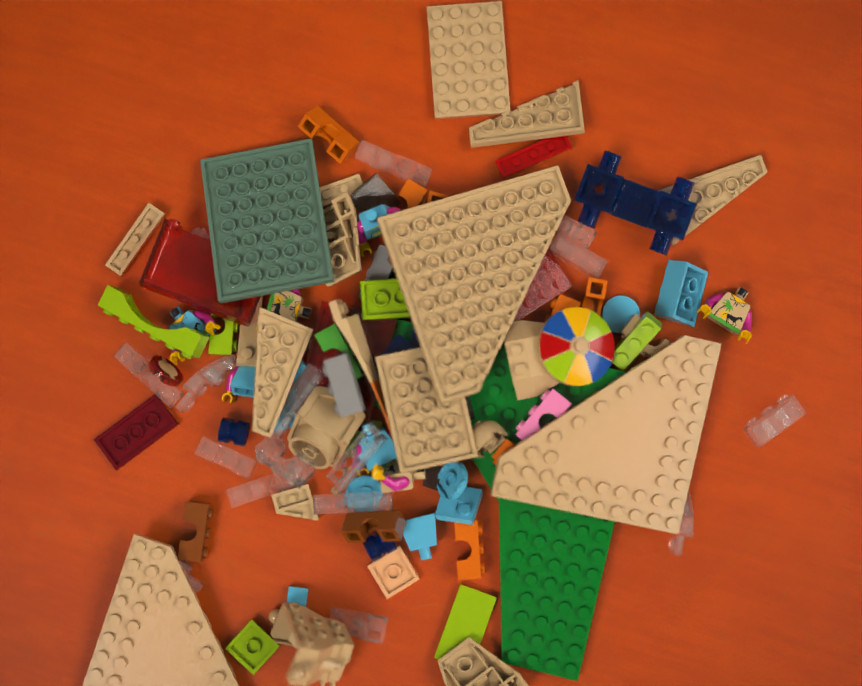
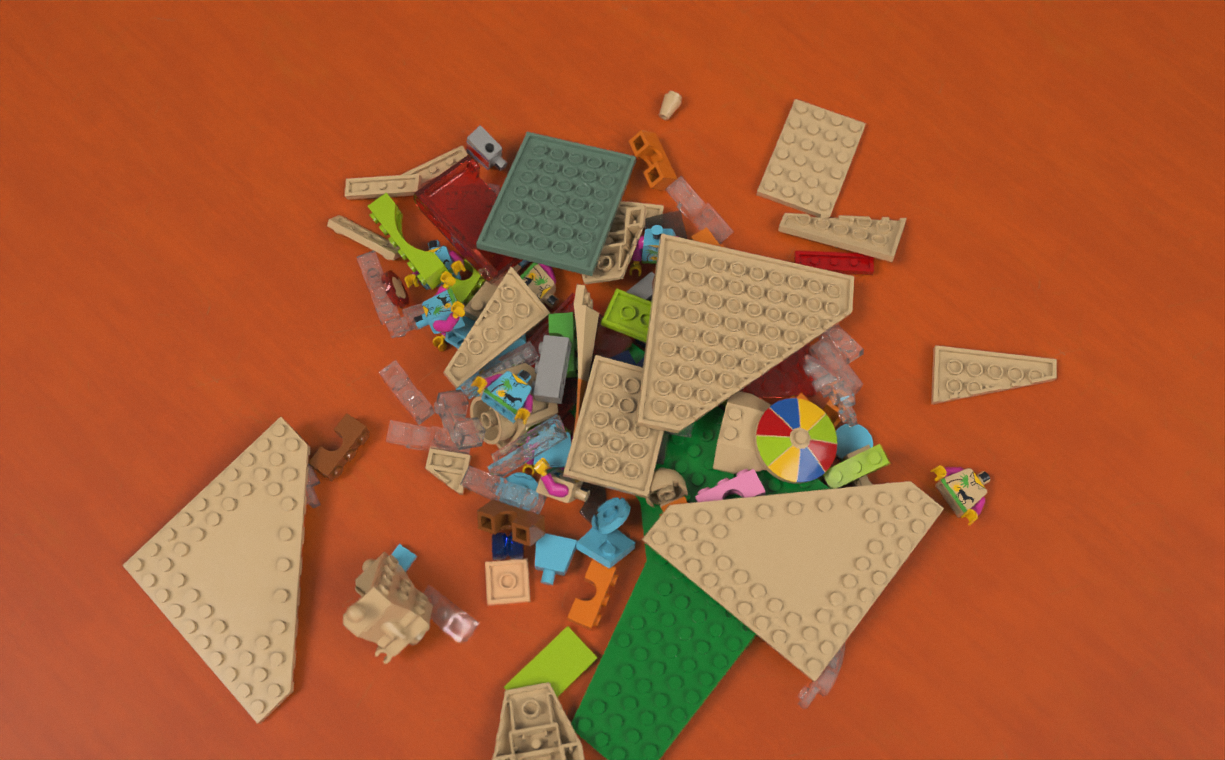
camera: 25 degrees right, 15 degrees down
(100, 278) = (377, 186): none -> tan plate
(108, 333) = (363, 236): none -> tan plate
(136, 432) = (338, 334): dark red tile -> none
(165, 198) = (485, 149): none -> light grey torso
(219, 373) = (442, 310): none -> torso
(233, 431) = (424, 372): clear blue wheel -> none
(252, 646) = (331, 585): lime plate -> none
(316, 68) = (670, 104): none -> tan cone
(321, 428) = (507, 394): none -> torso
(579, 278) = (832, 384): none -> clear slope
(635, 202) = (914, 345): clear blue piece -> none
(681, 292) = (922, 449): medium azure slope -> none
(774, 420) = (965, 617): clear brick -> none

